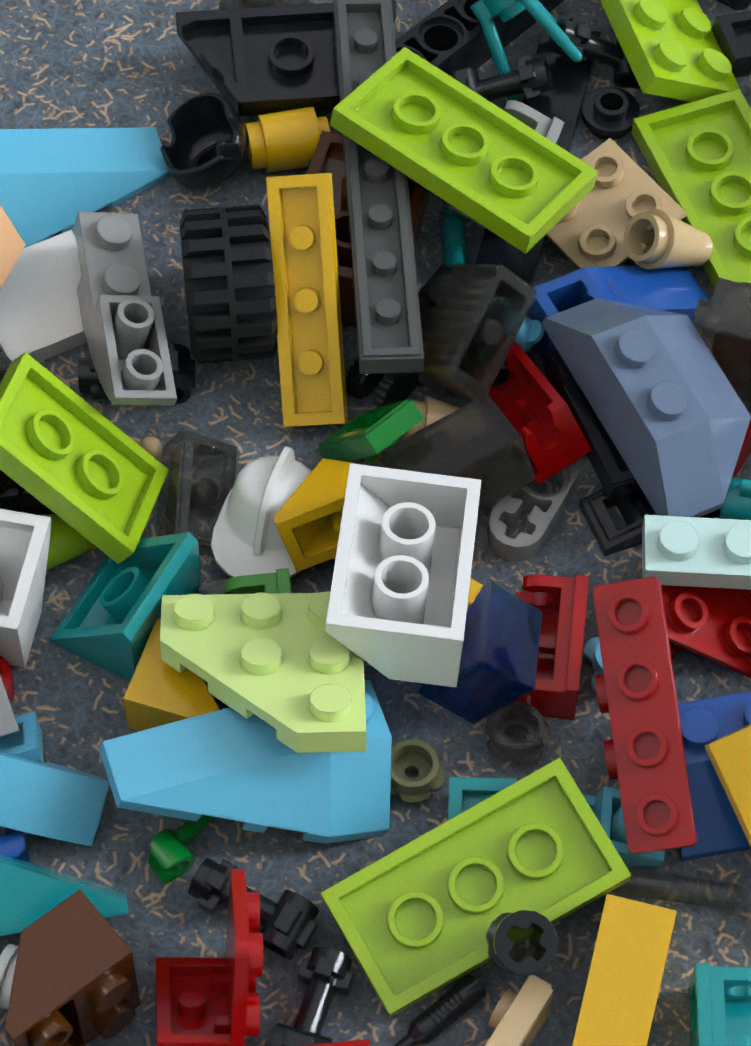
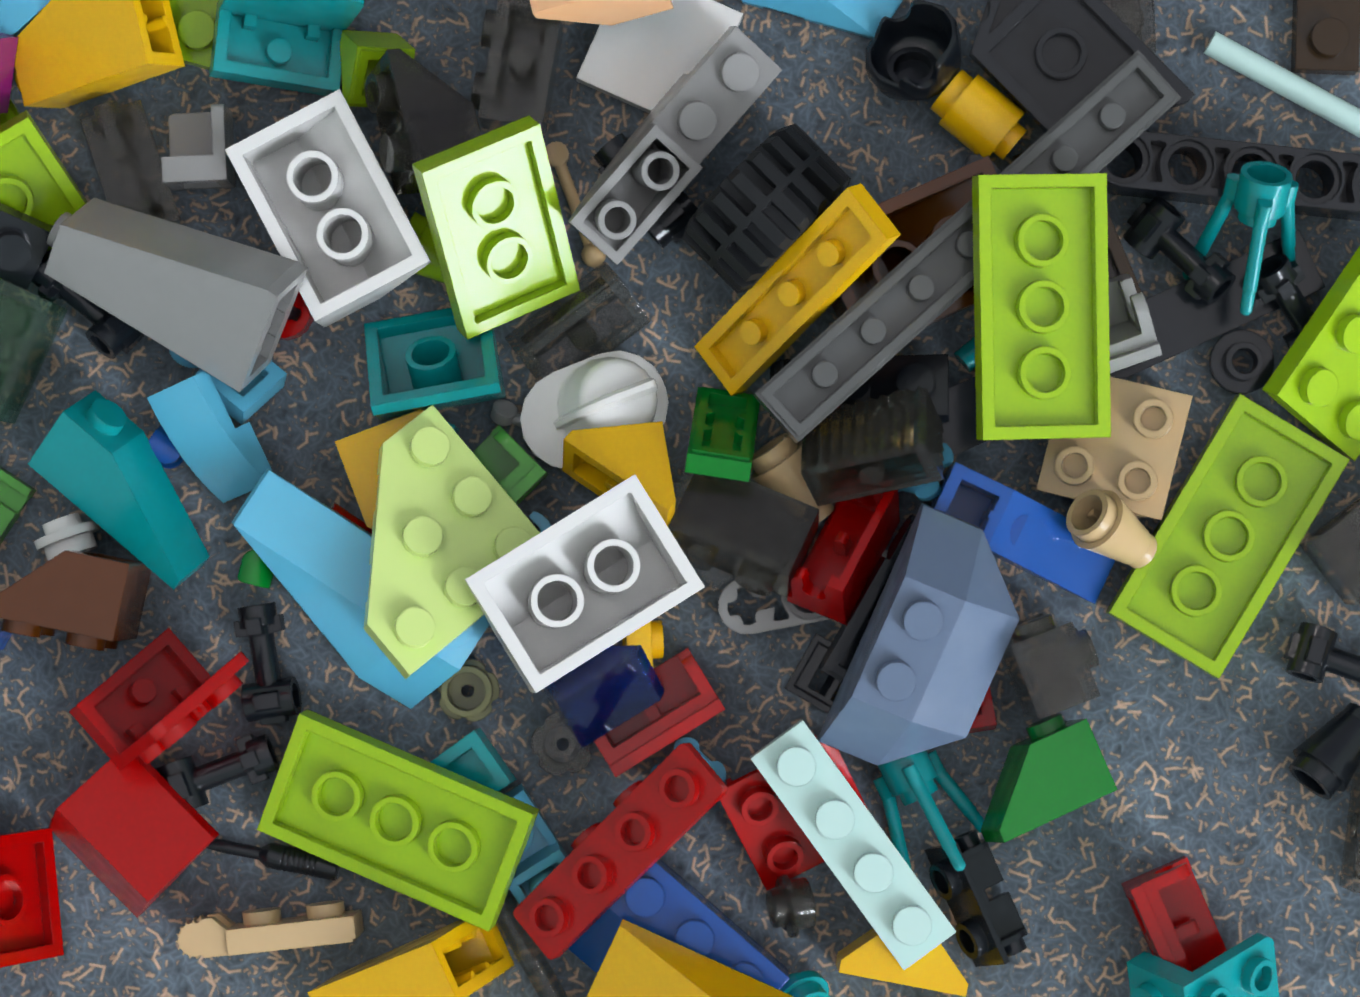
camera: 50 degrees right, 30 degrees up
(543, 939) = (360, 899): black bush -> none

